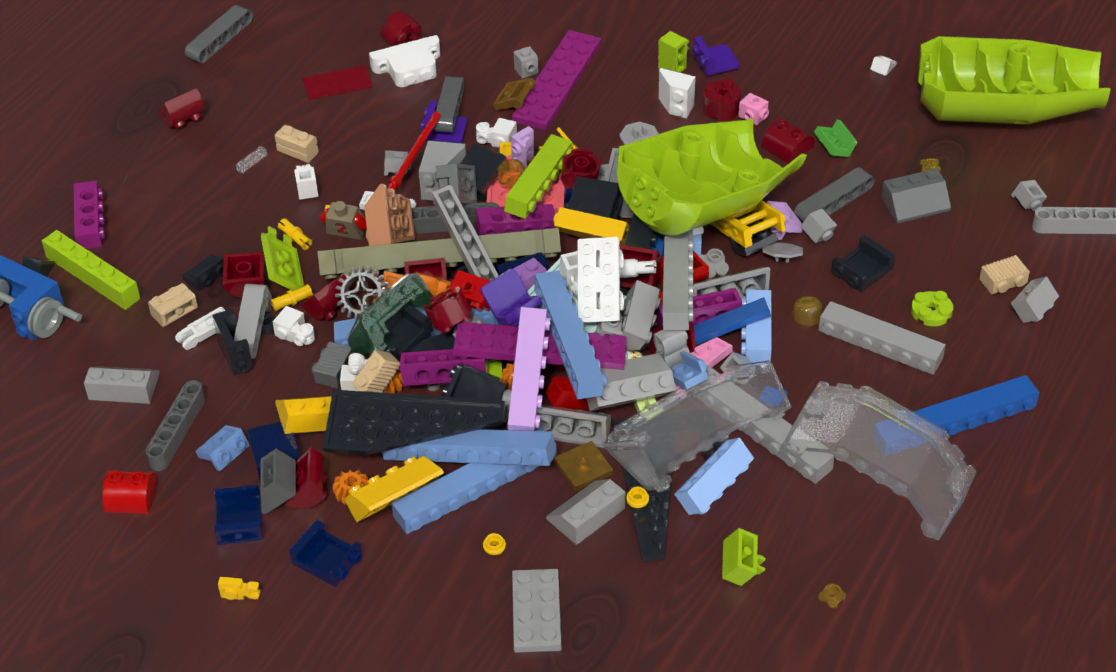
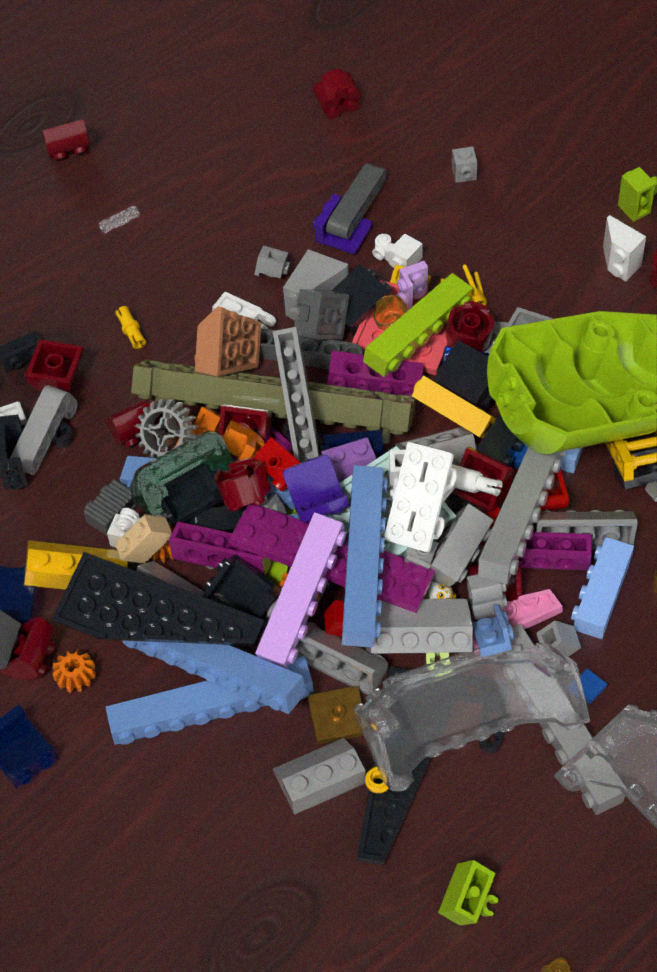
camera: 20 degrees right, 10 degrees up
(218, 34) = (141, 48): dark grey beam -> none
(282, 260) = (101, 361): lime tile -> none
(291, 297) = (98, 408): yellow pin -> none
(292, 327) = (85, 446): white brick -> none
(296, 143) = (172, 211): tan brick -> none
(306, 181) = (163, 263): white brick -> none
(337, 82) = (248, 140): dark red window -> none
(344, 220) = (181, 322): dark tan torso -> none
(391, 487) = (111, 688): yellow slope -> none
(396, 180) = (260, 289): red bar -> none
(408, 62) = (334, 133): white brick -> none
(494, 539) = (198, 783): yellow plate -> none
(514, 94) = (435, 204): pearl gold plate -> none
(536, 610) = (217, 888): light grey plate -> none
(557, 80) = (493, 194): magenta plate -> none
(637, 131) = (561, 292): light grey piece -> none
(714, 476) = (477, 776): light blue brick -> none
(716, 261) = (579, 490): light grey plate -> none
(731, 320) = (570, 574): blue tile -> none

